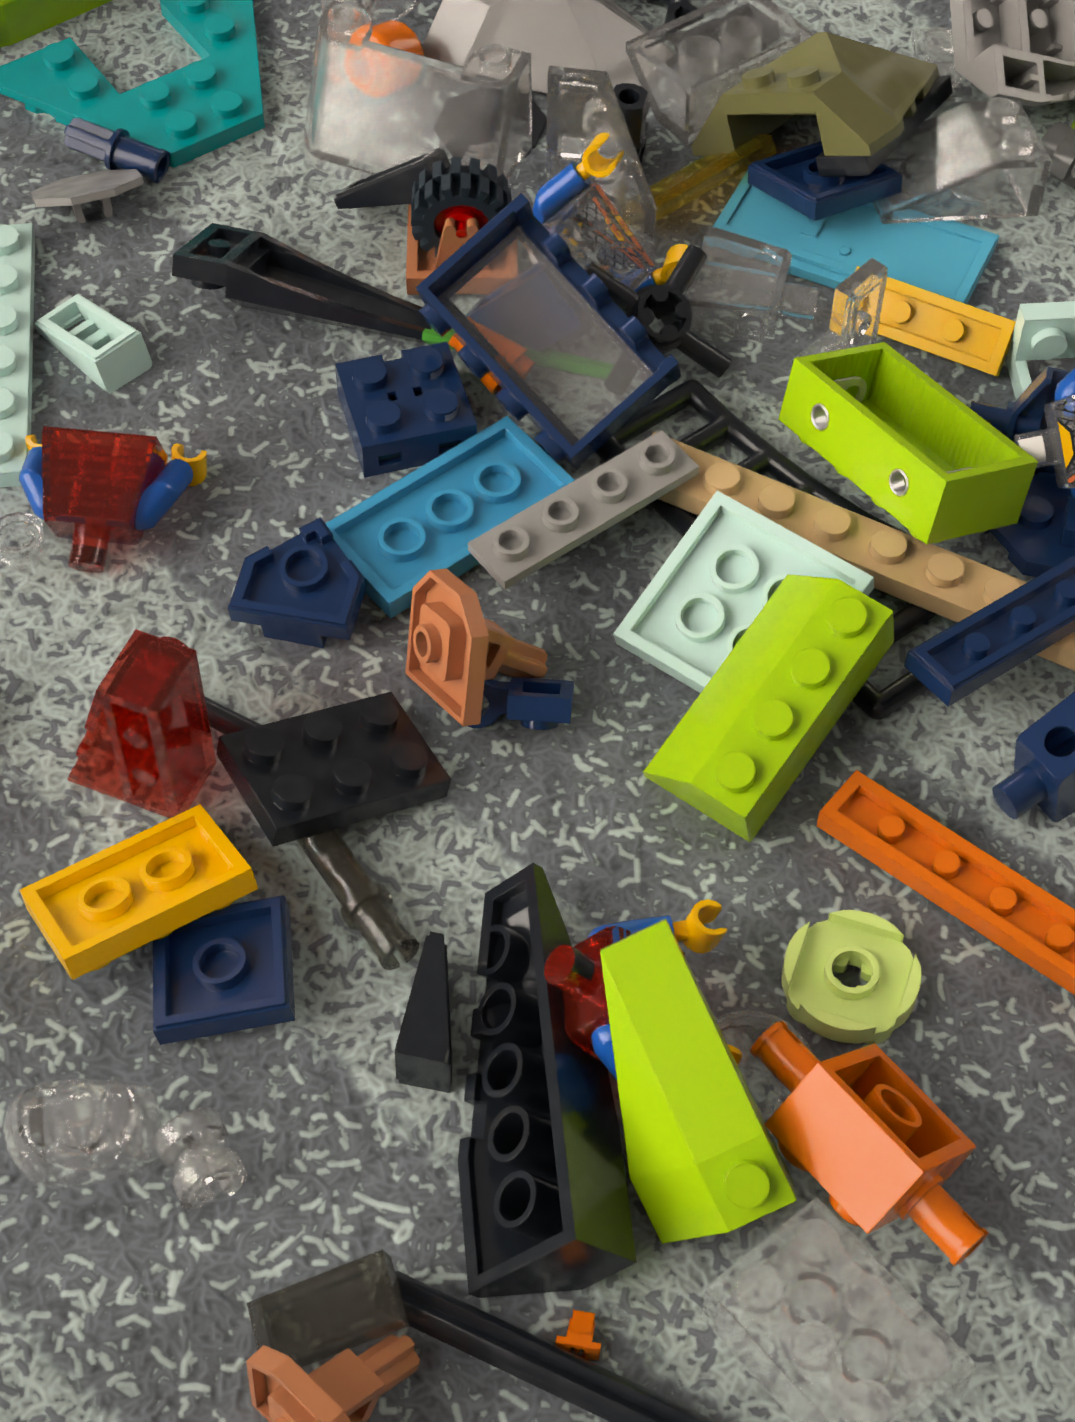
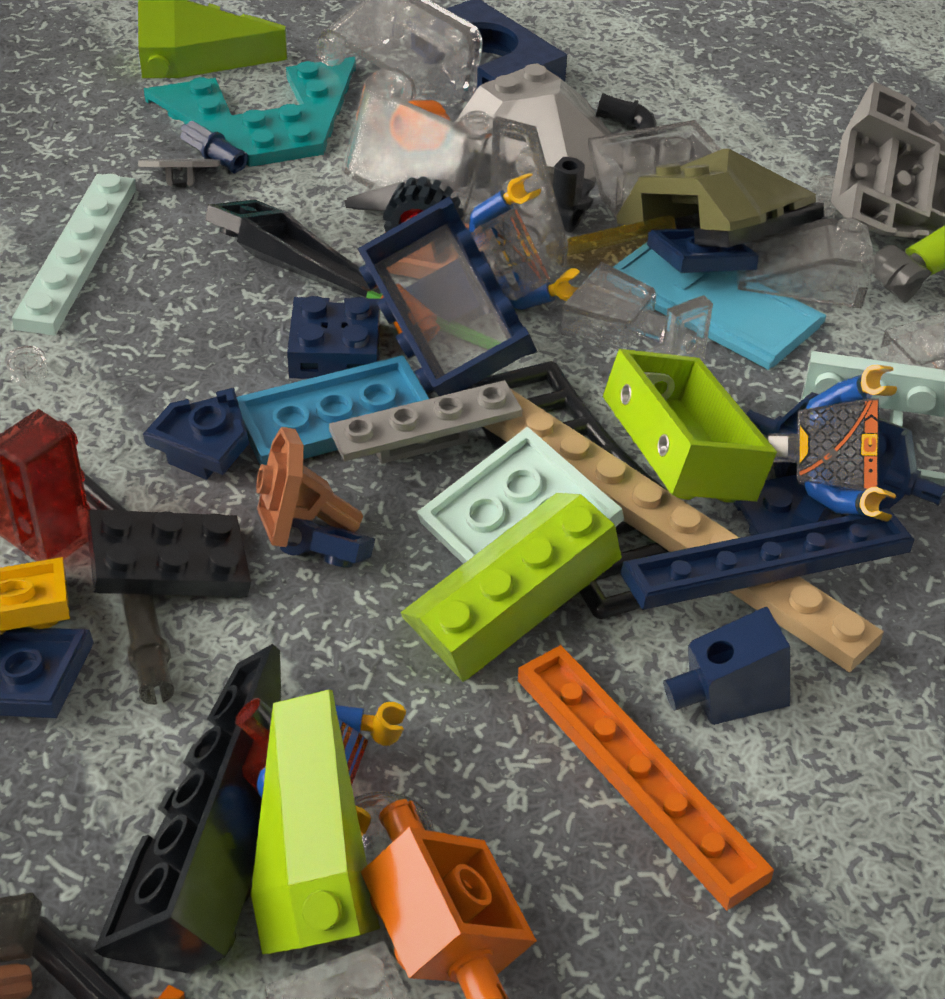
camera: 15 degrees right, 10 degrees down
(100, 346) = (147, 262): light aqua slope -> none
(103, 487) = (98, 341): clear red torso -> none
(424, 1039) = (151, 744): black slope -> none
(672, 307) = (549, 305): black bar -> none
(845, 1012) = (496, 821): yellowish green plate -> none
(945, 327) = (755, 362): yellow plate -> none

